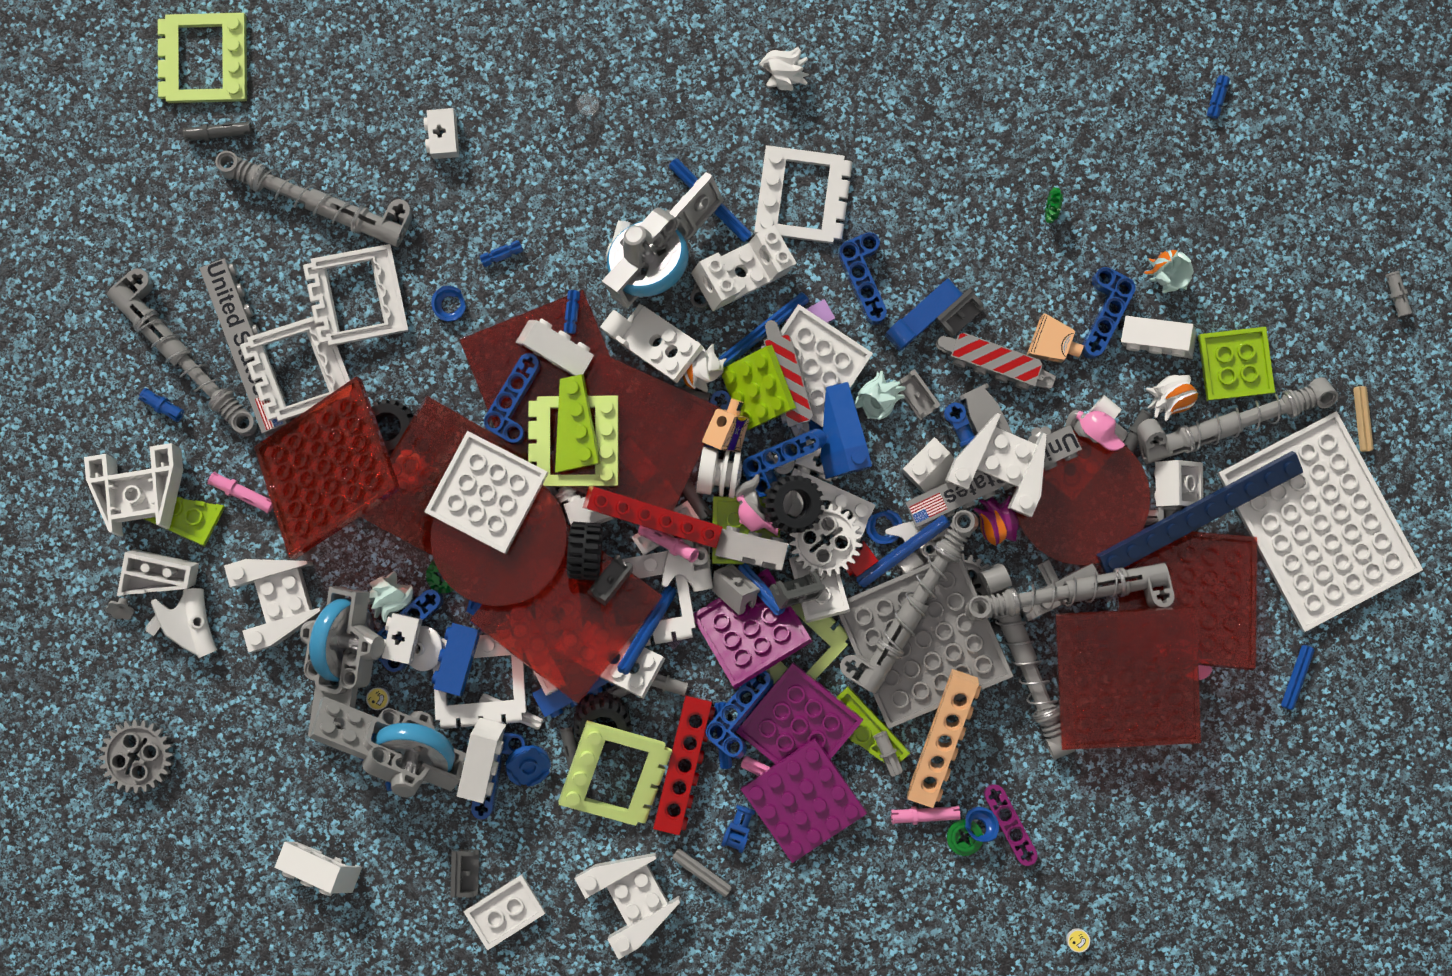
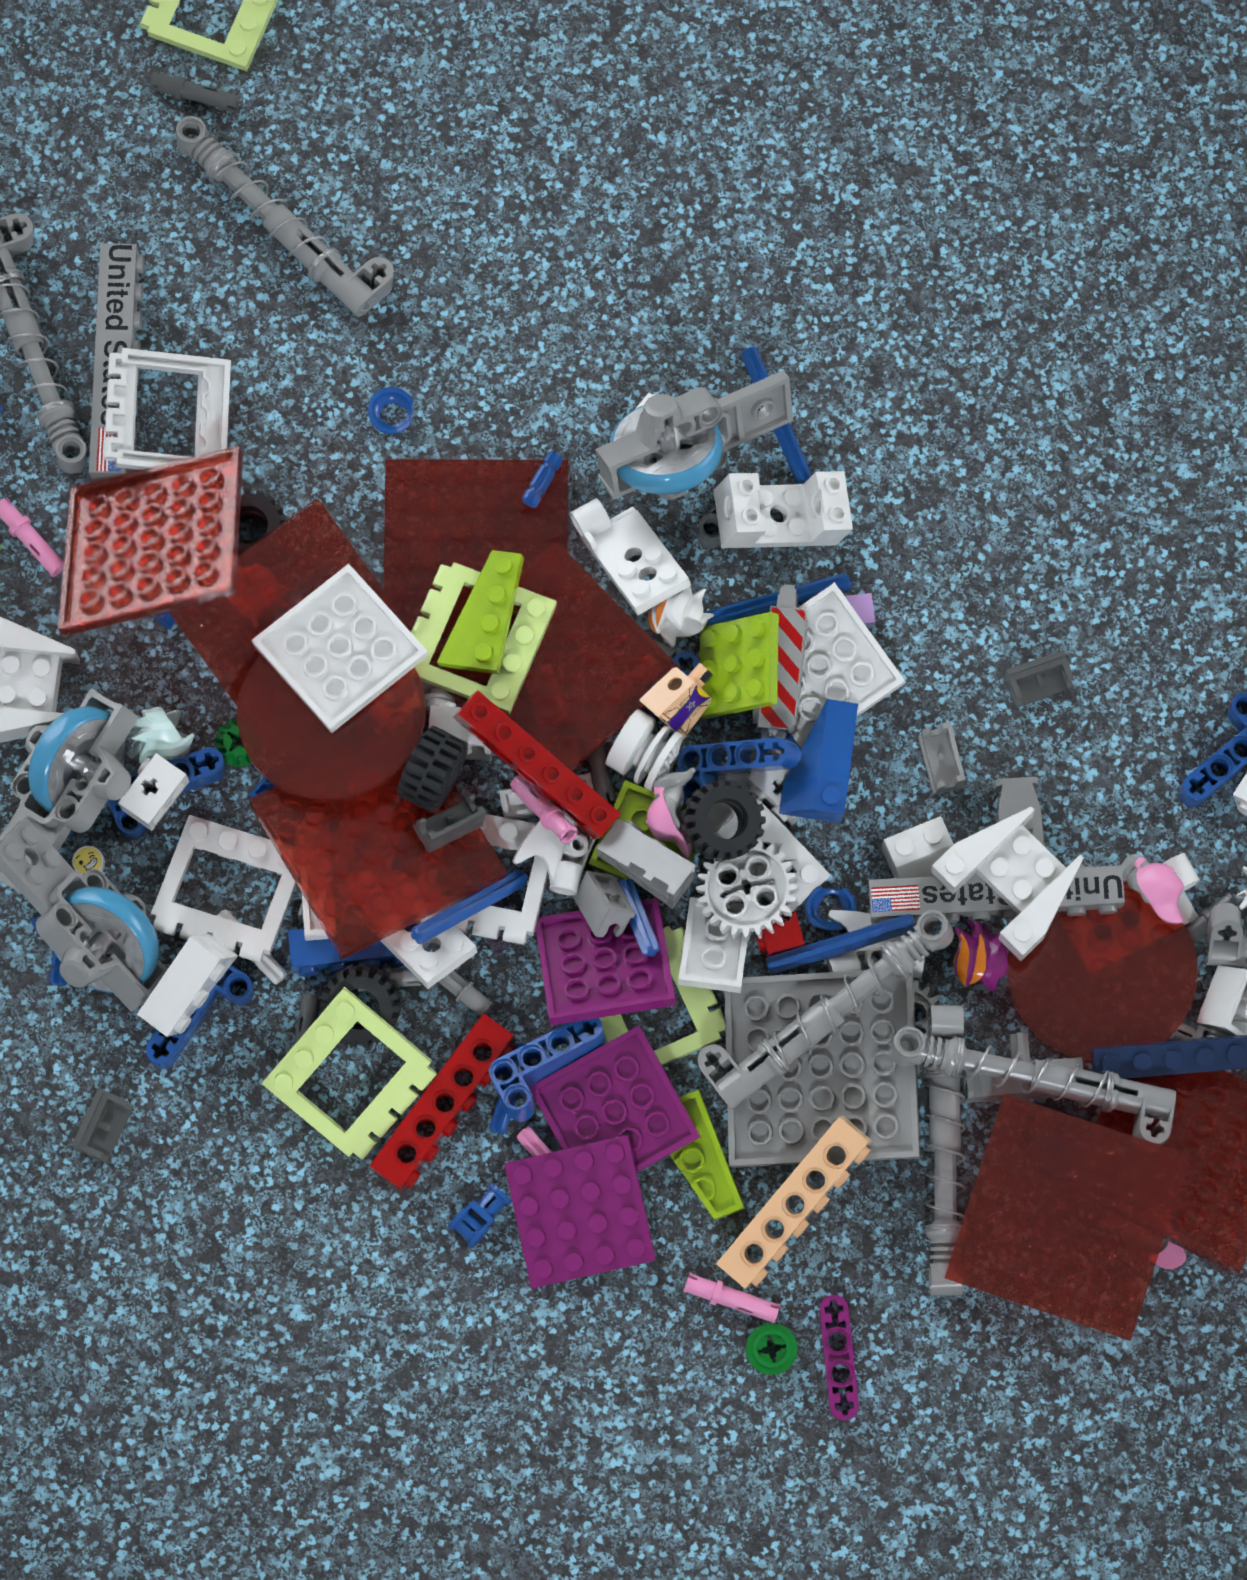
camera: 20 degrees right, 10 degrees down
(387, 289) = (321, 365): white hinge -> none
(430, 647) = (180, 828): white dish -> none
(447, 145) = (473, 218): white brick -> none
(456, 659) = (210, 847): blue brick -> none
(501, 253) = (484, 376): blue axle -> none
(504, 912) = (132, 1197): white plate -> none
(516, 395) = (428, 552): blue beam -> none
(528, 765) = (243, 1021): blue tile -> none
(555, 347) = (503, 511): white wedge -> none
(587, 104) = (670, 239): clear plate -> none
(635, 895) = (309, 1245): white wedge -> none
(701, 872) = (408, 1253): light grey axle -> none
(771, 192) = (943, 464): white hinge -> none
(785, 68) = (937, 290): white hair -> none
(797, 590) = (682, 935): dark grey hinge -> none
(866, 281) = (933, 591): blue beam -> none
(879, 397) = (890, 739): light aqua hair -> none
(888, 753) = (715, 1195): light grey axle -> none
(923, 315) = (980, 666): blue beam -> none
(960, 425) = (981, 816): blue connector -> none
(988, 818) = (808, 1330): blue piece -> none
(996, 360) = (1061, 756): light grey hinge -> none
(1053, 205) = (1214, 591): green gear -> none
(1053, 341) = (1145, 761): light nougat torso -> none
(1078, 940) = (867, 1547): tile -> none

